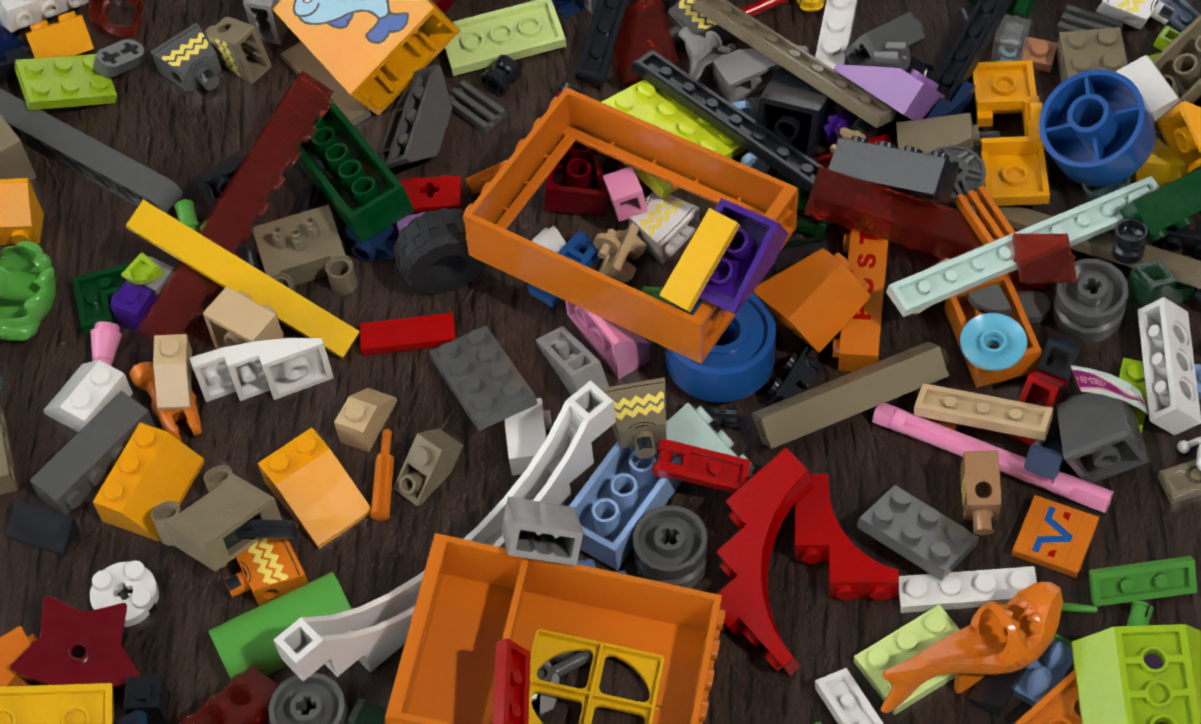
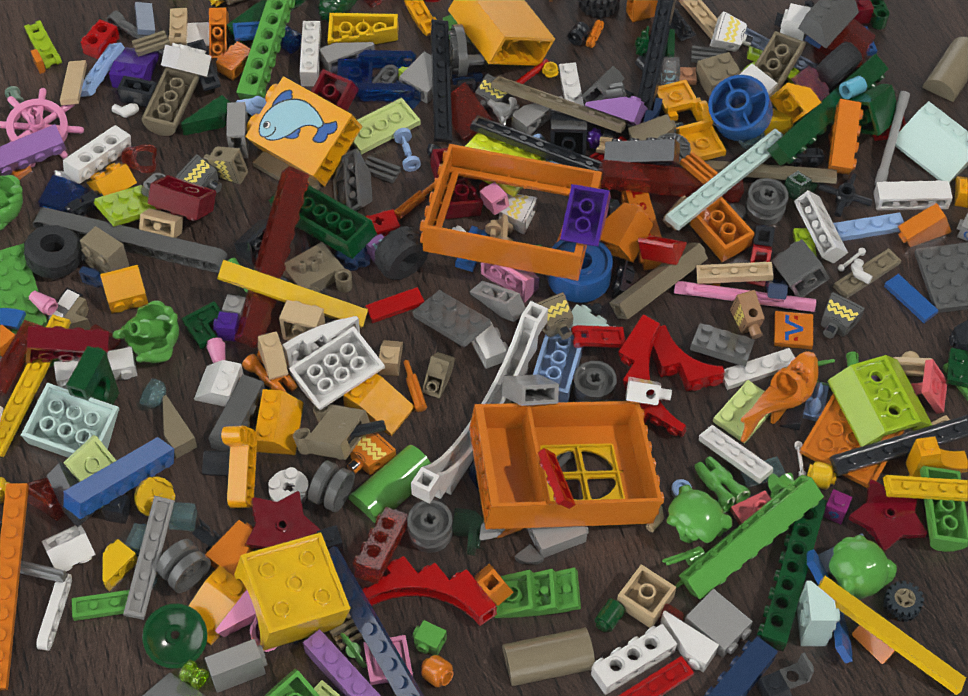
camera: 25 degrees left, 0 degrees up
(59, 536) = (241, 464): none -> light orange beam
(102, 120) = (161, 223): none -> tan brick
(142, 270) = (229, 302): lime tile -> none
(146, 86) = (181, 197): none -> dark red brick
(179, 609) = (331, 486): none -> dark grey wheel
(263, 415) = (336, 368): none -> white slope
(502, 73) = (390, 148): black wheel -> none
(525, 106) = (410, 163): none -> light blue wheel
(699, 260) = (570, 221): yellow tile -> none
(725, 577) = (637, 390): none -> white torso
(867, 341) = (661, 249): none -> red slope
(990, 300) = (719, 211): dark grey tile -> none
(996, 331) = (730, 227): medium azure dish -> none
(1044, 258) = (739, 183): clear red piece -> none
(1108, 385) = (798, 241): sticker -> none
(1129, 241) = (779, 165): black wheel -> none
(1143, 581) = (848, 341): bright green plate -> none
(1146, 531) = (840, 316): none -> dark grey torso

